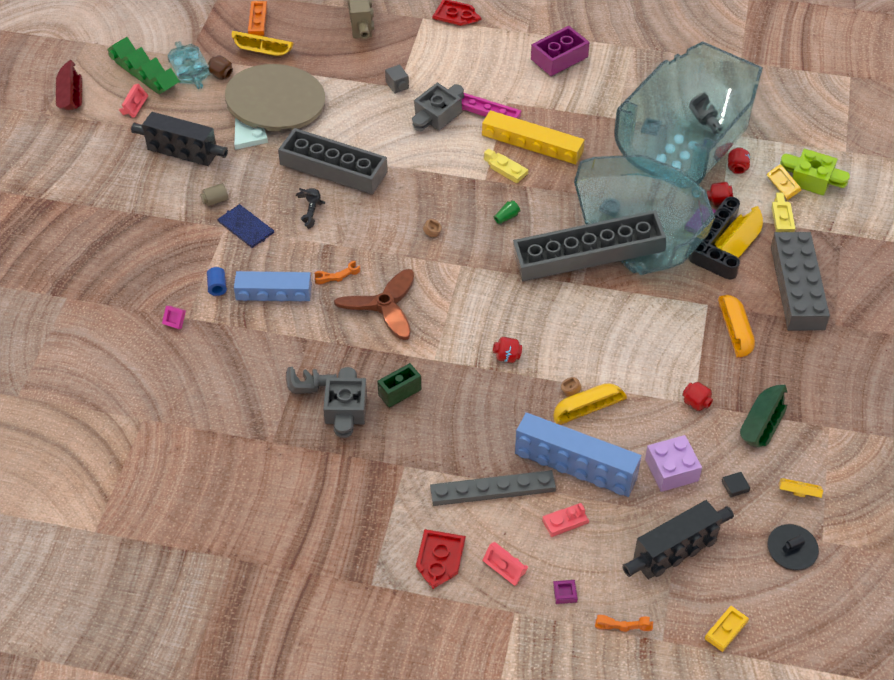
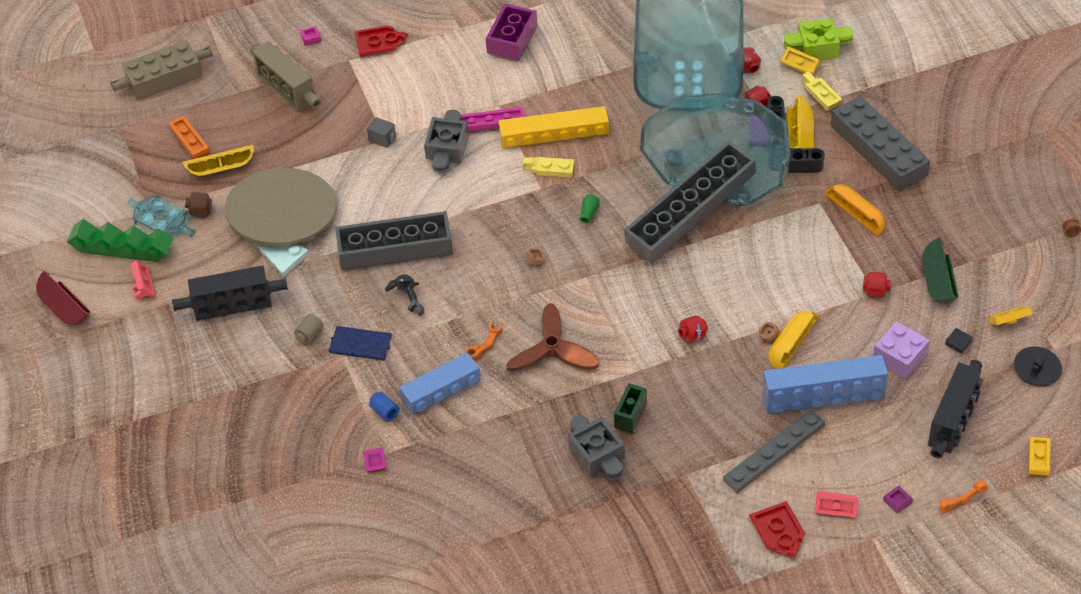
camera: 30 degrees left, 0 degrees up
(310, 384) = (547, 449): dark grey piece -> none
(565, 519) = (852, 443): coral plate -> none
(698, 107) = (694, 33): dark grey piece -> none

